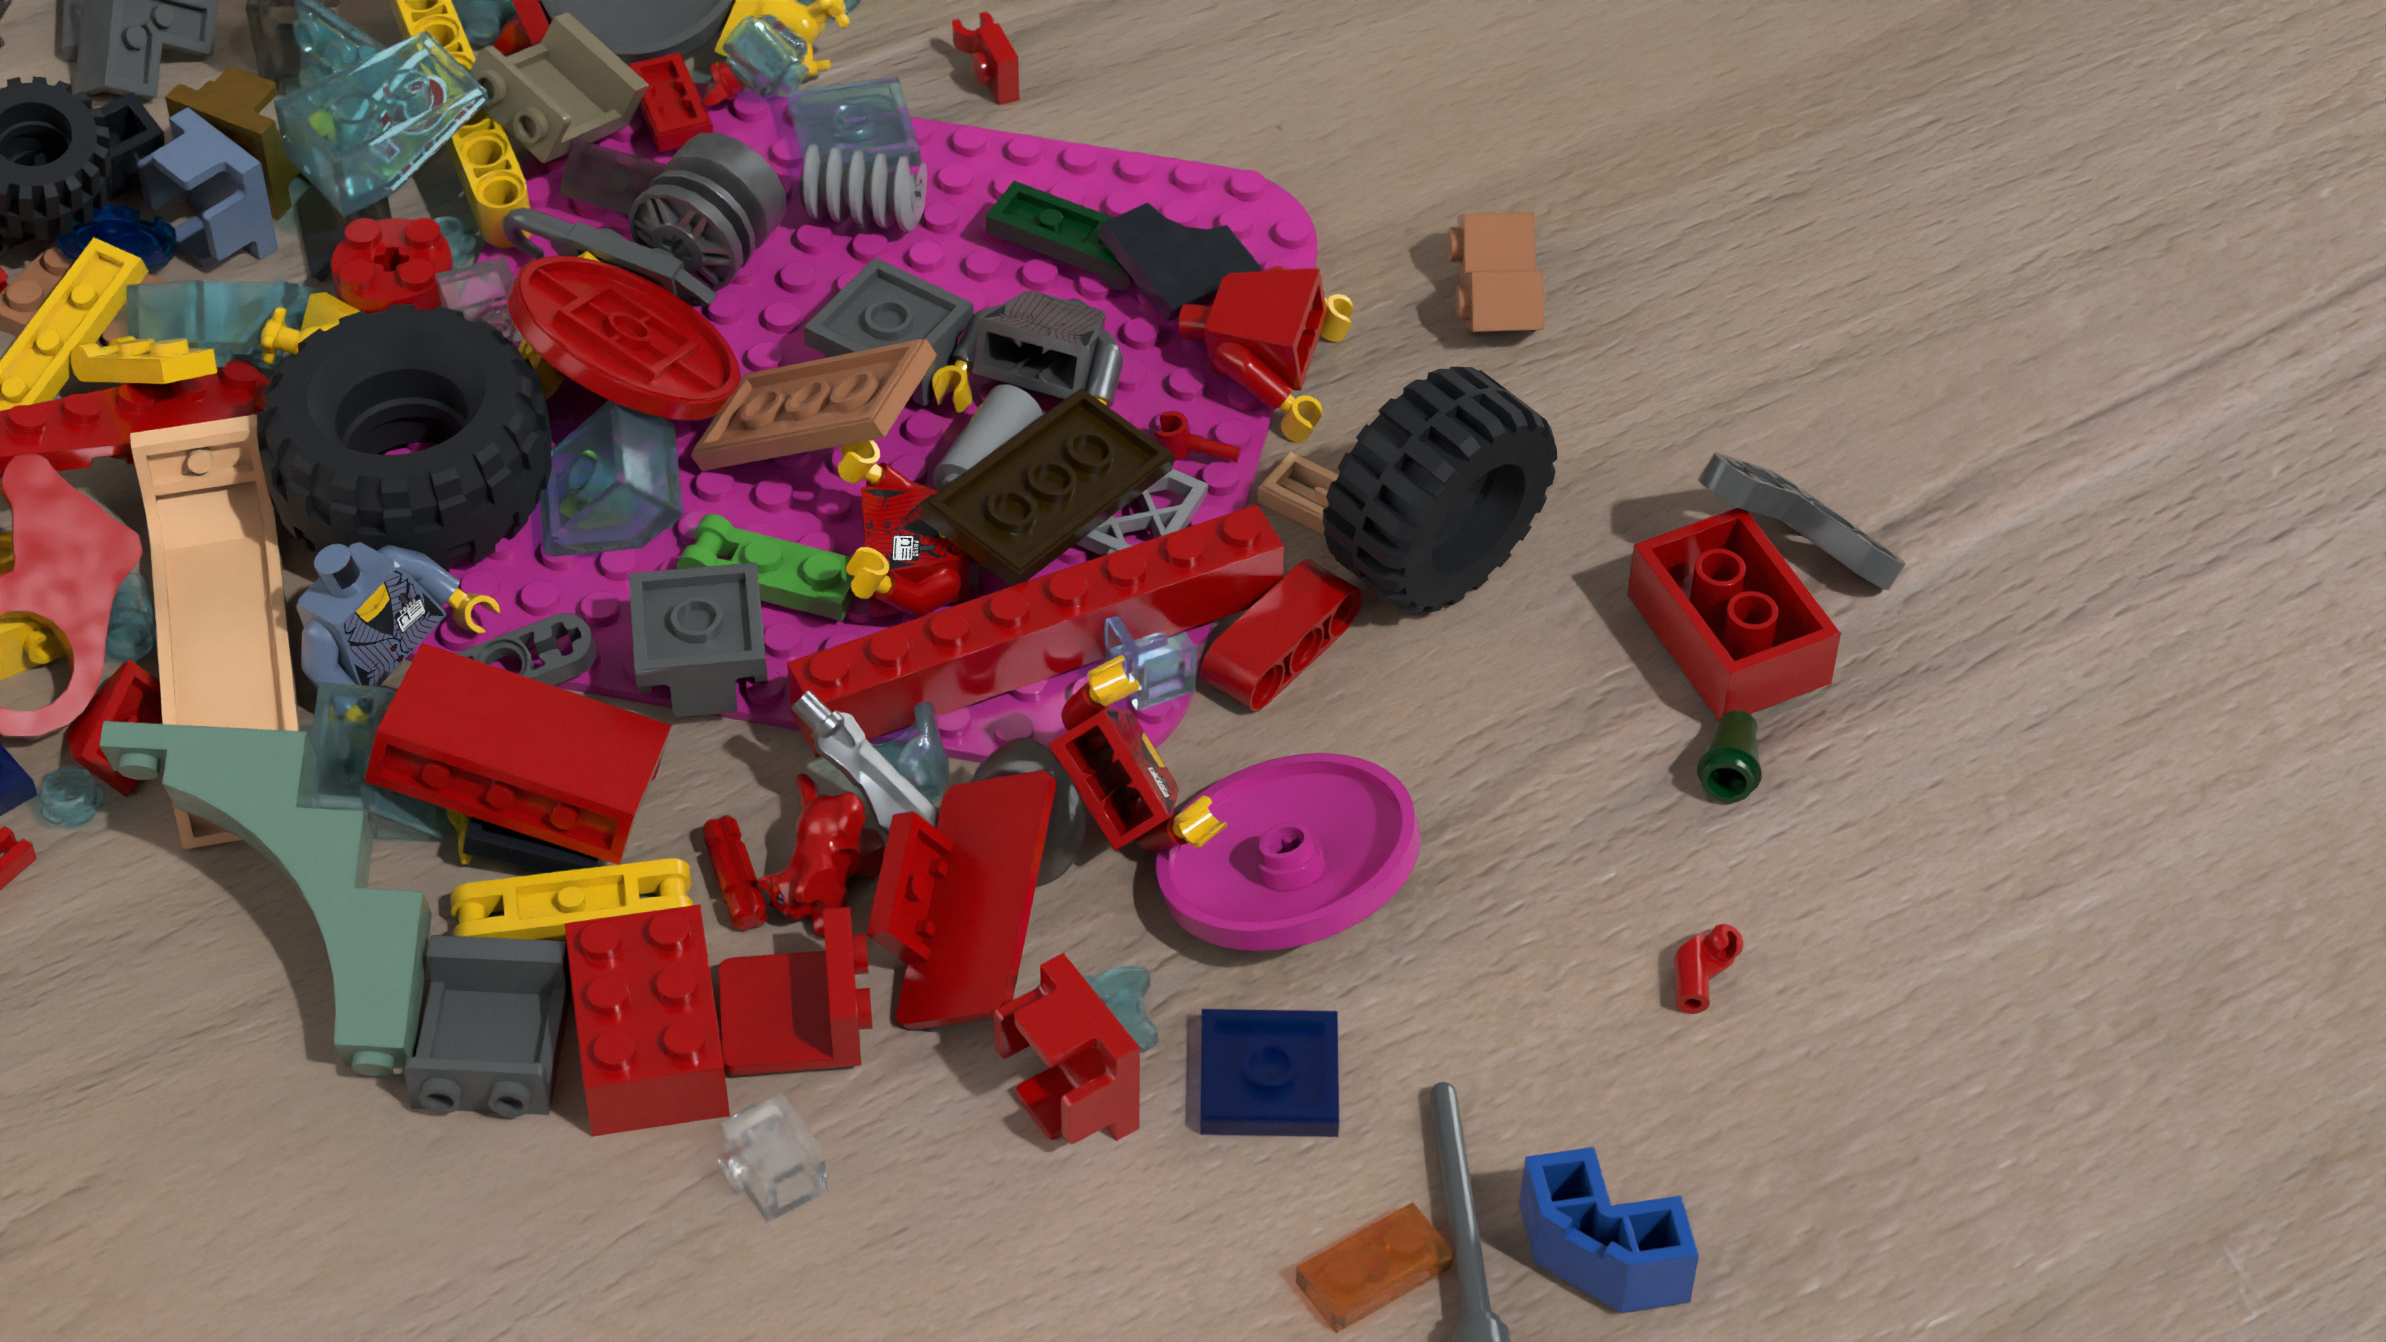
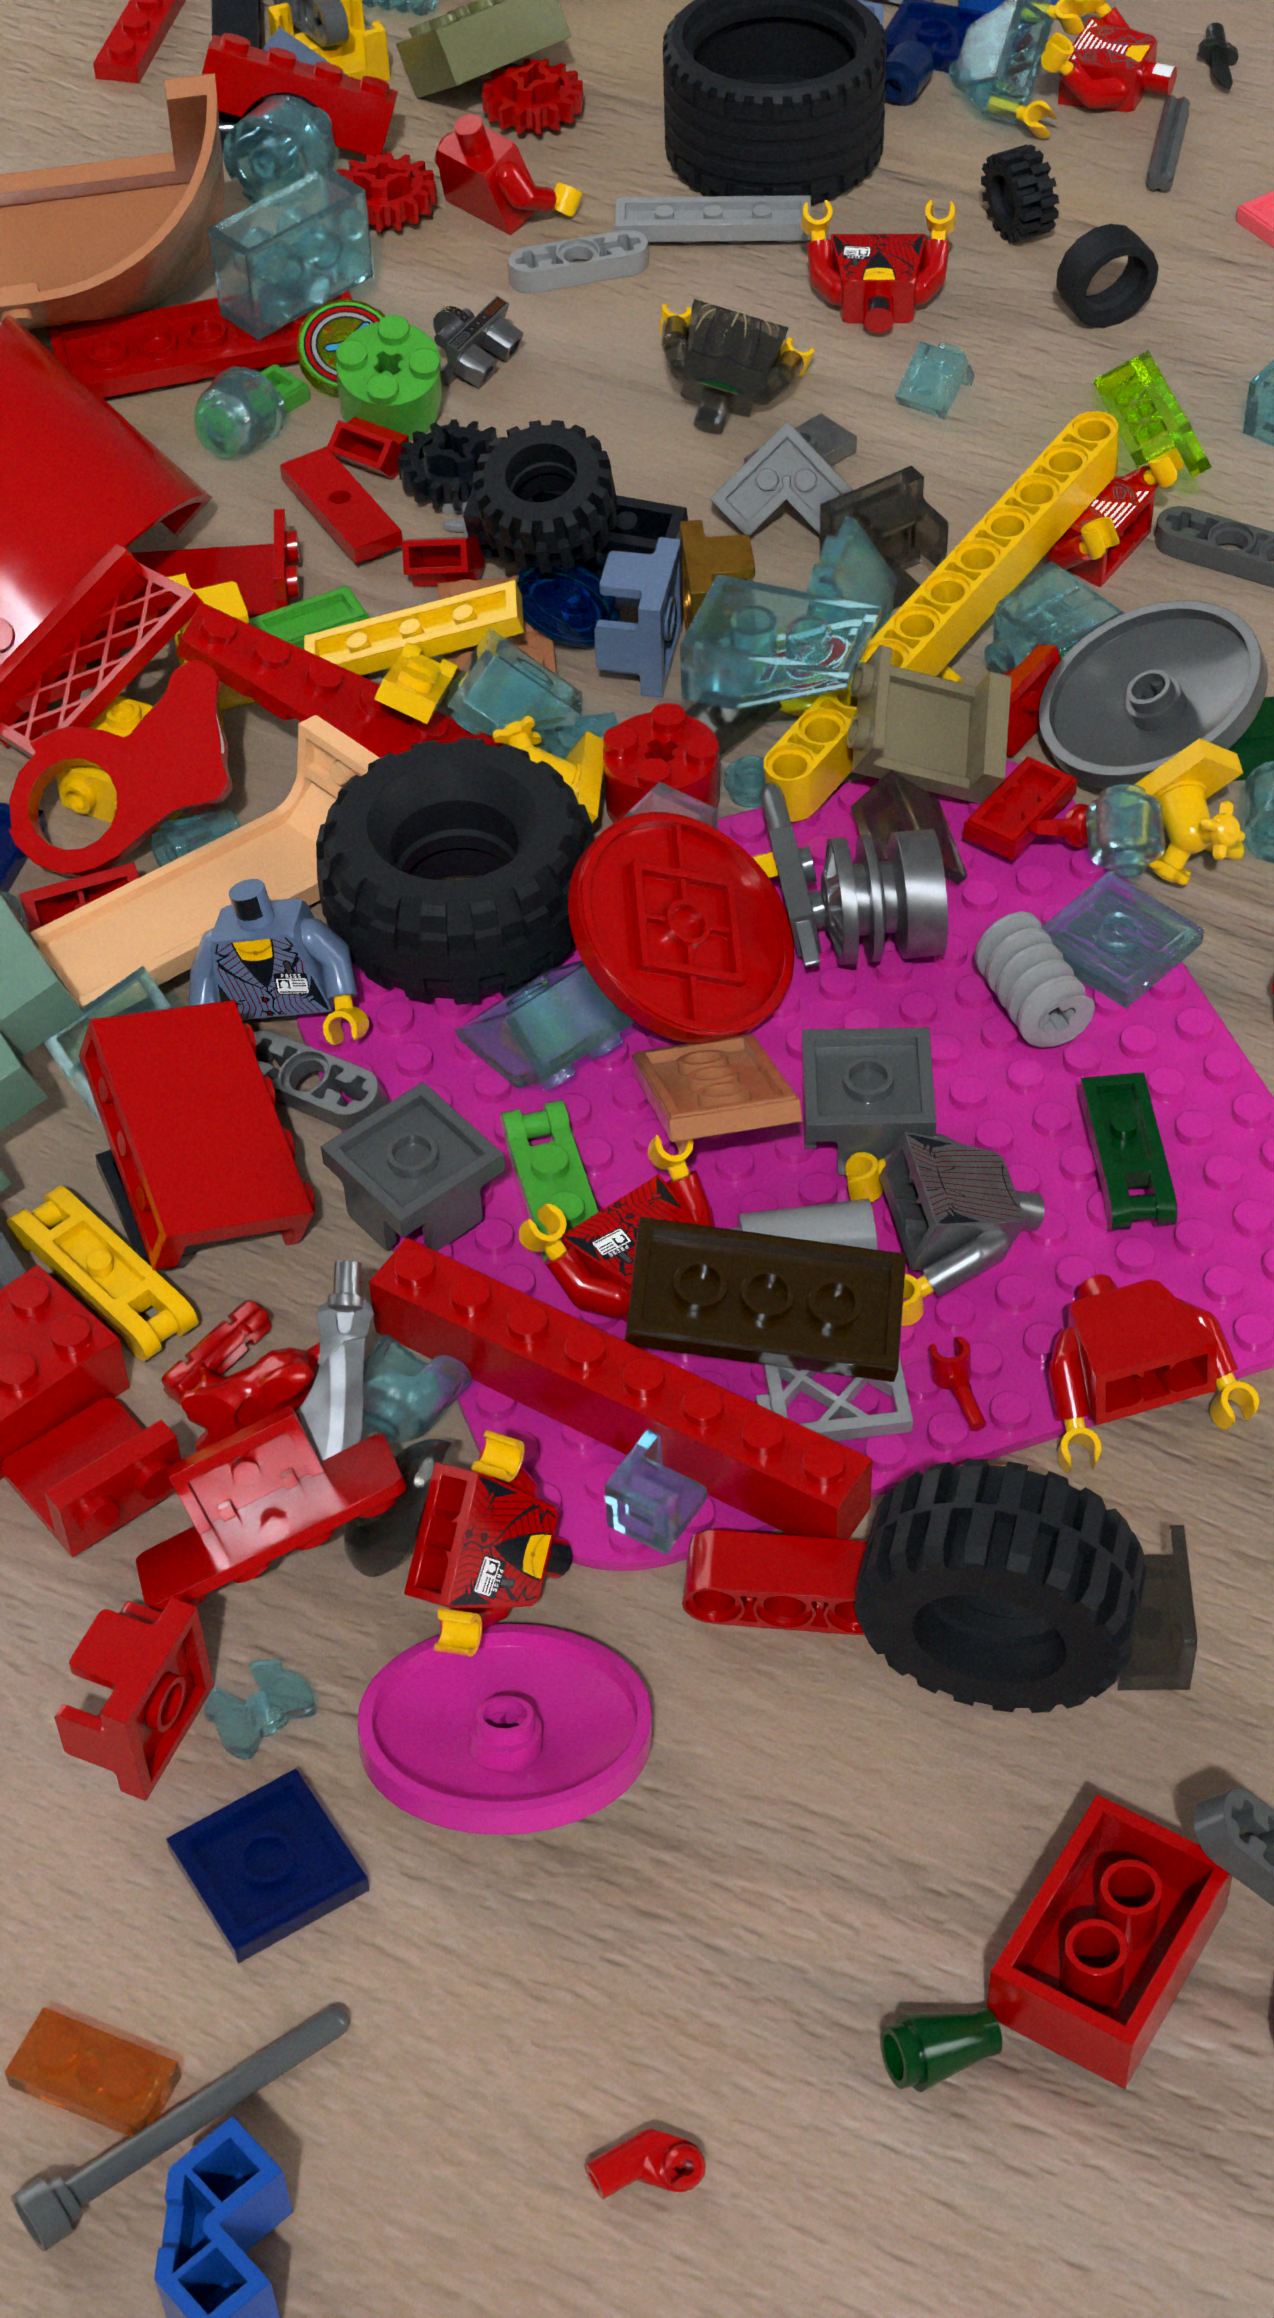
camera: 60 degrees right, 0 degrees up
(1174, 261) = (1158, 1237): black tile -> none

